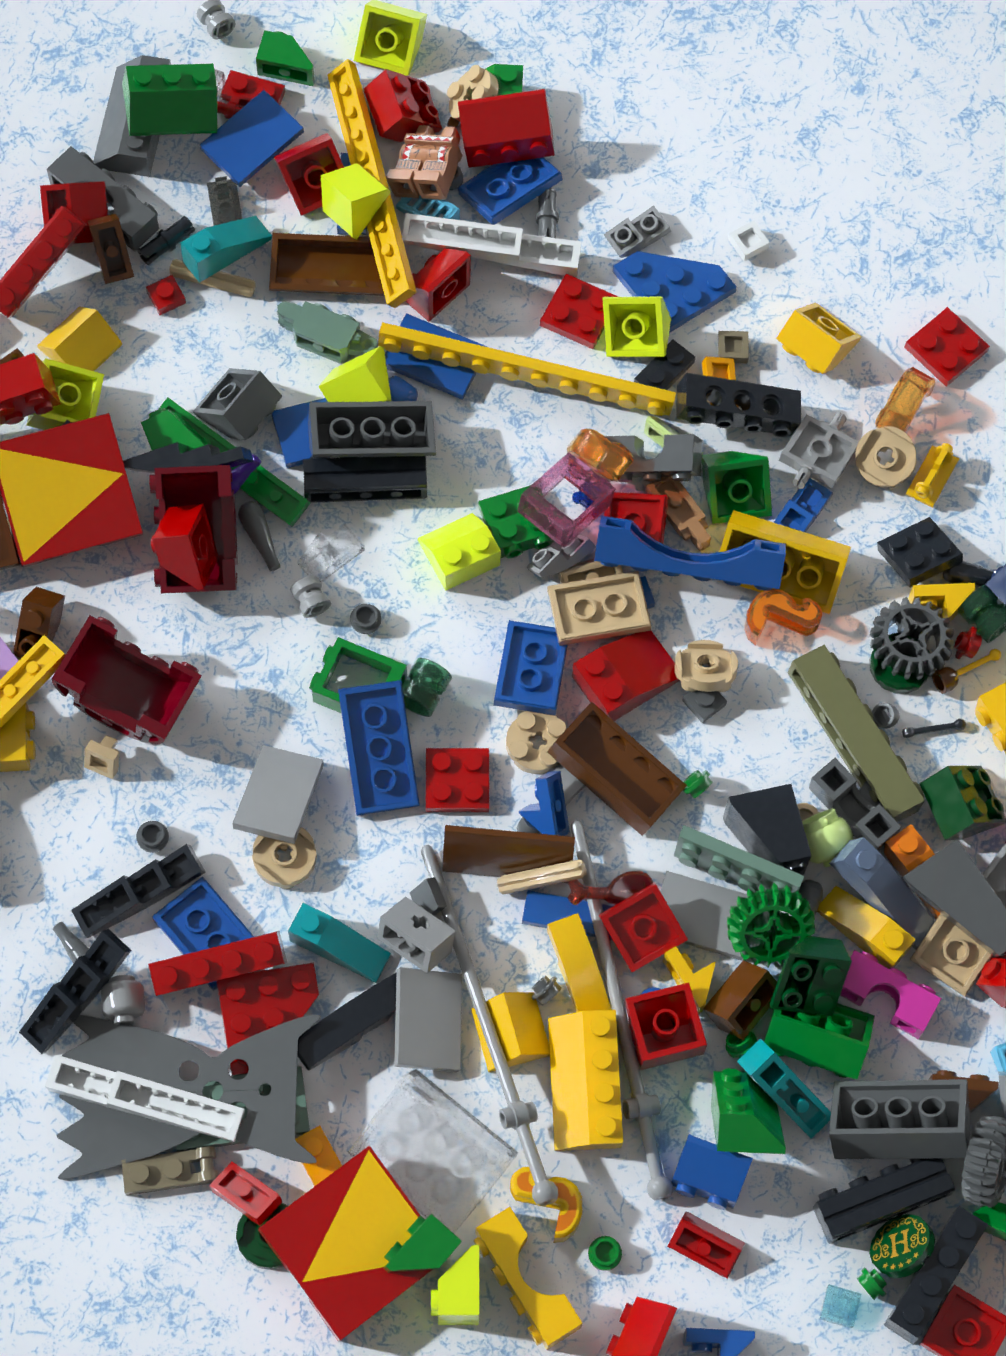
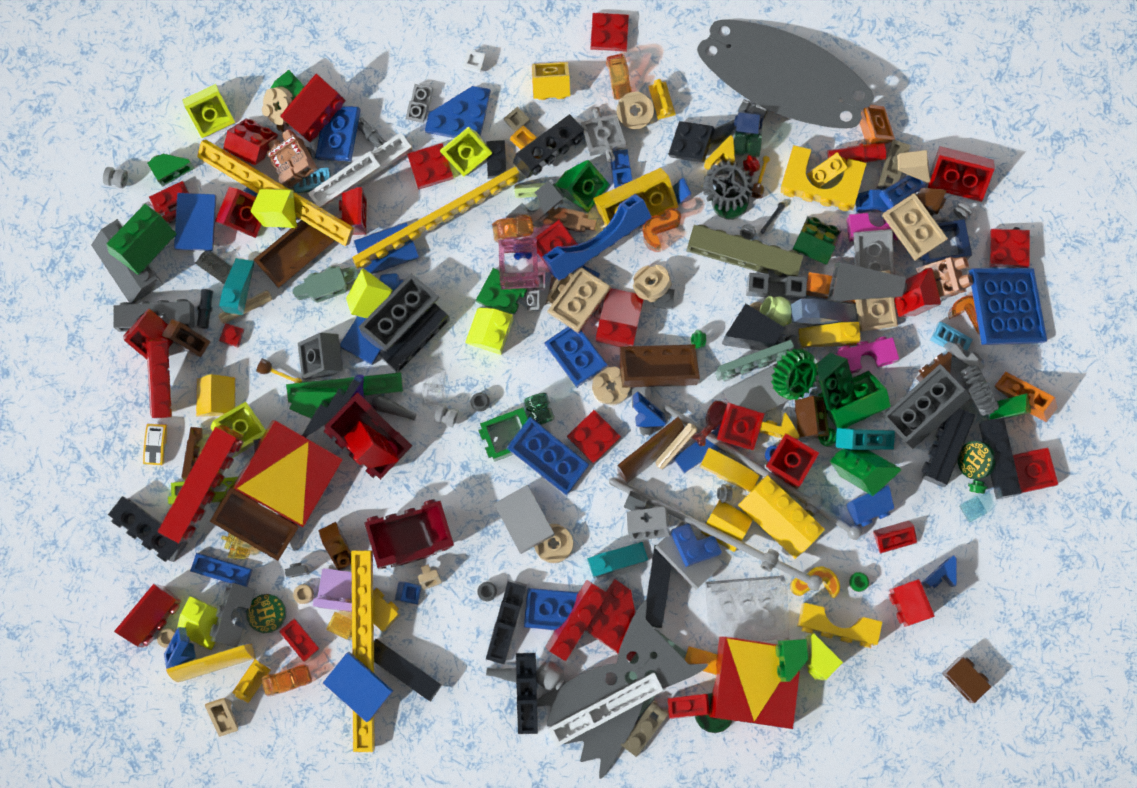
camera: 40 degrees left, 10 degrees up
(63, 753) = (408, 592): none -> blue slope
(165, 361) = (265, 367): none -> hinge
(438, 1017) = (691, 549): none -> blue plate
(848, 598) = (681, 191): none -> blue slope

